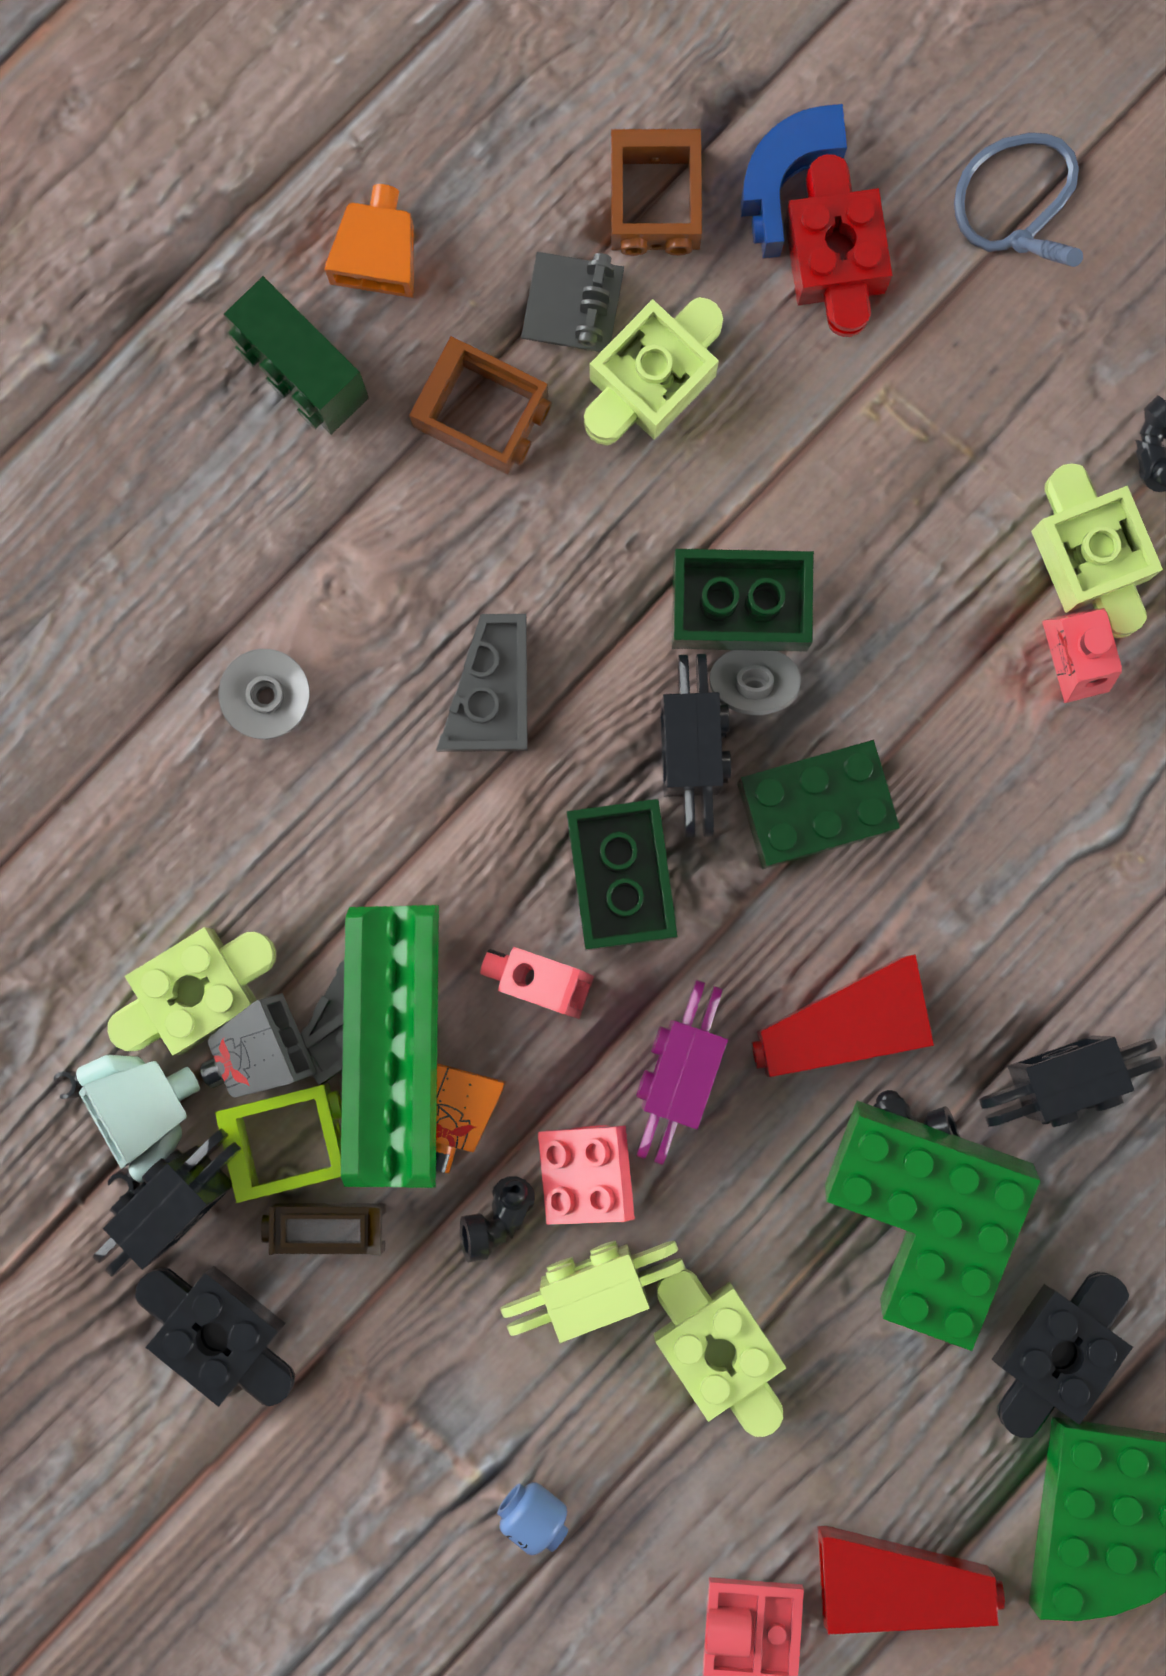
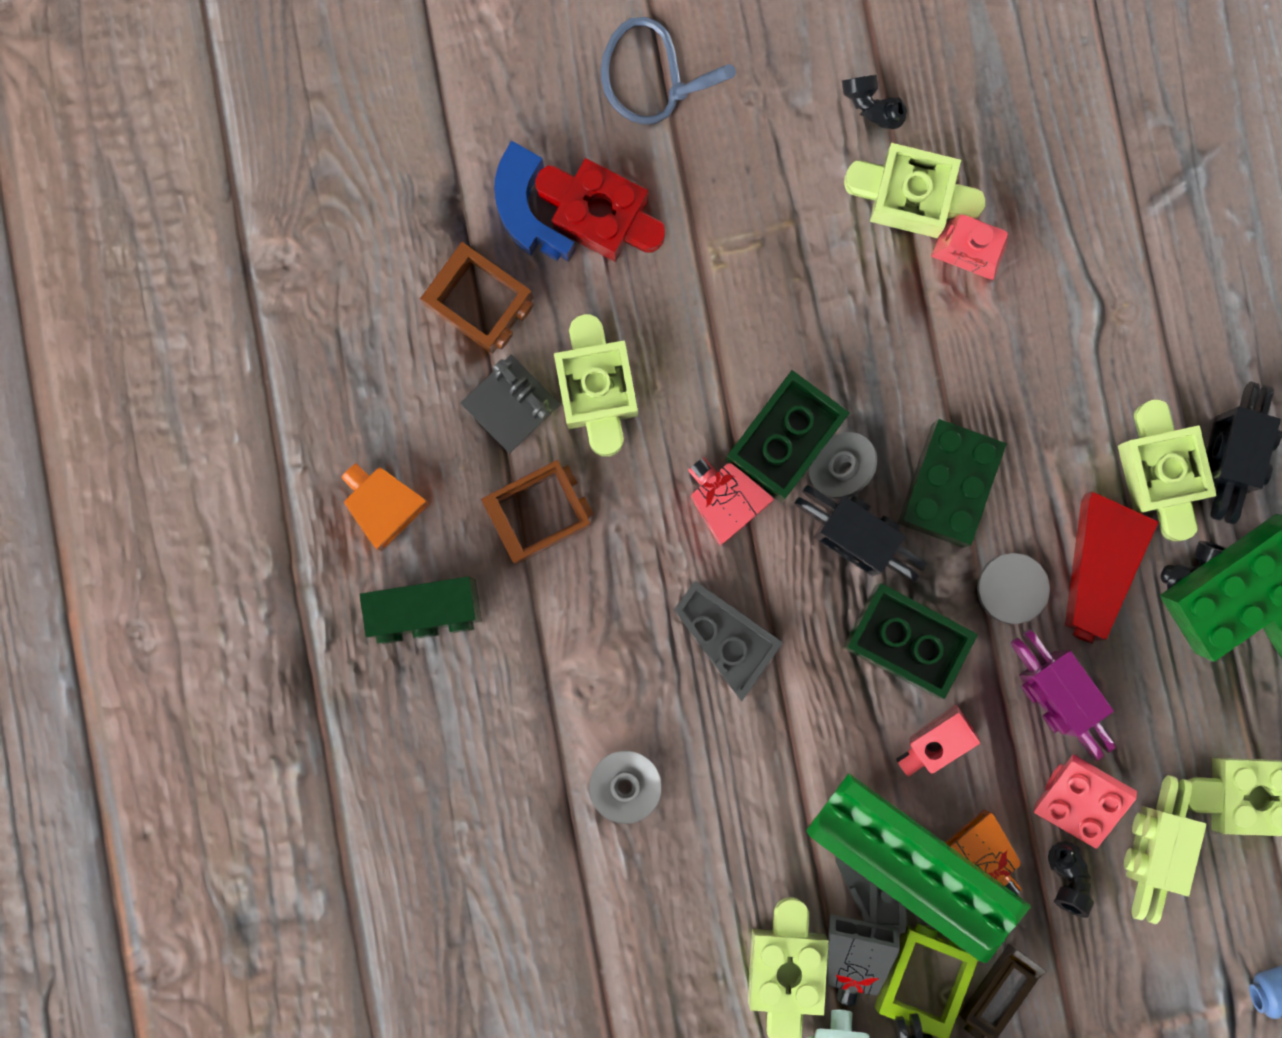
camera: 55 degrees left, 0 degrees up
(633, 587) = (726, 498): none -> coral torso
(756, 949) = (1013, 588): none -> light grey tile
(995, 1017) = (1166, 470): none -> yellowish green brick

